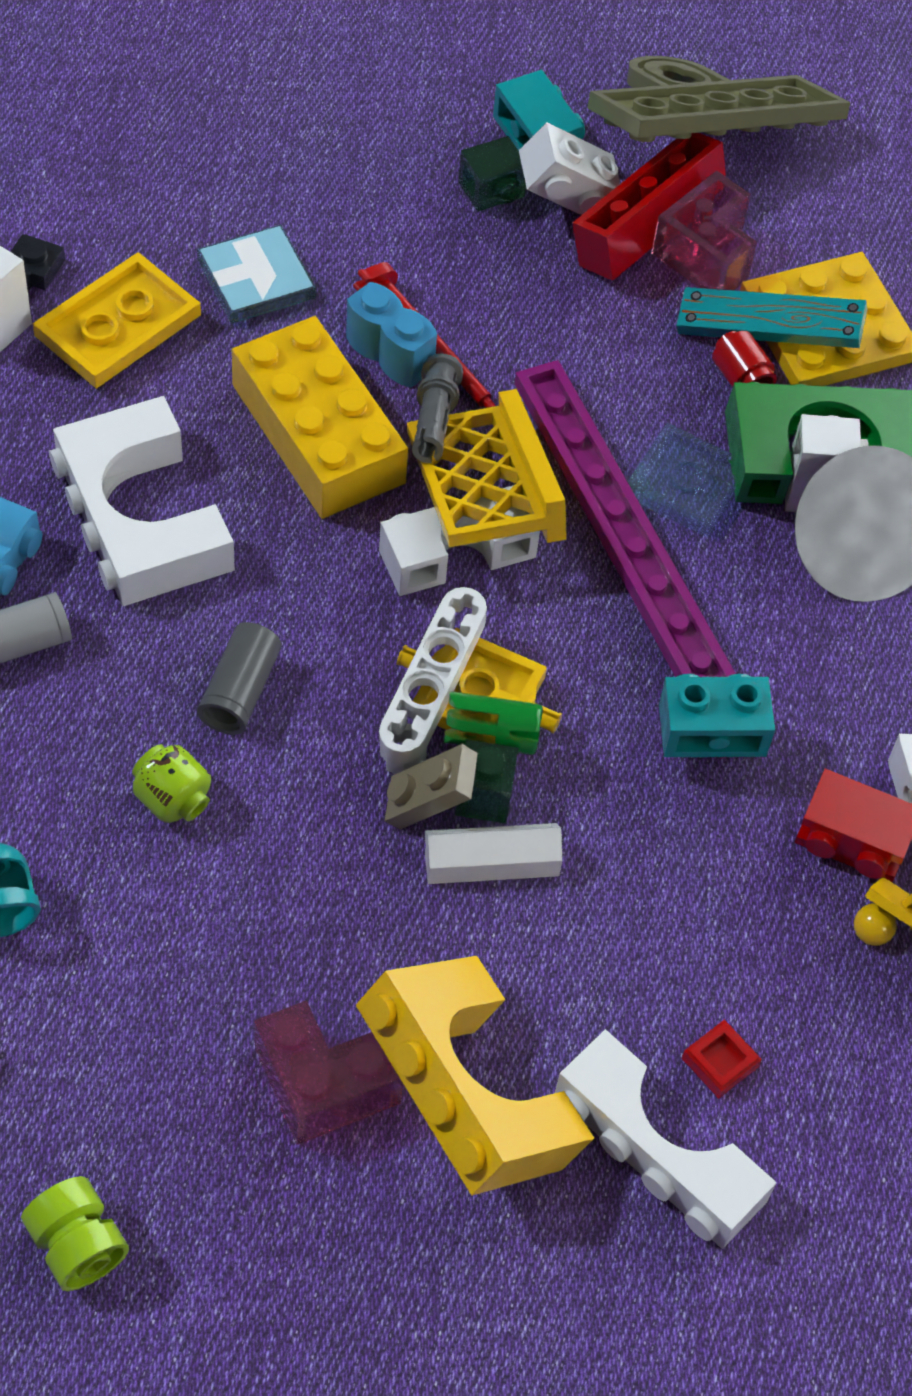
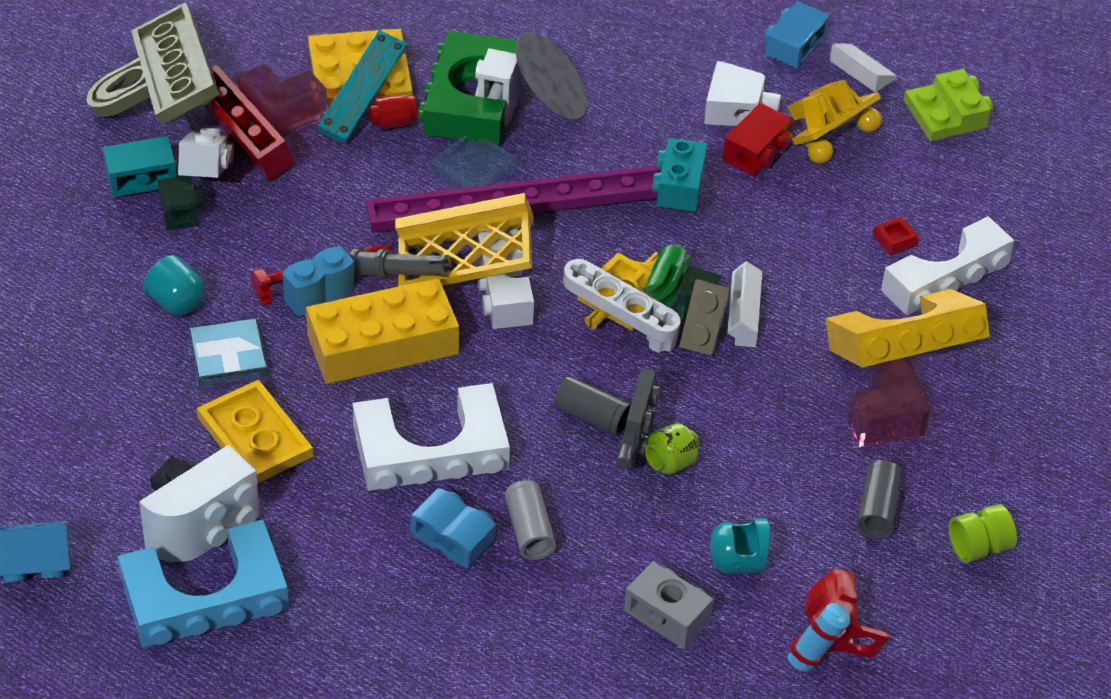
camera: 75 degrees left, 10 degrees down
(128, 1077) = (879, 499): none -> dark grey pin
(204, 721) = (639, 420): none -> dark grey plate
(336, 191) = (174, 286): none -> teal helmet

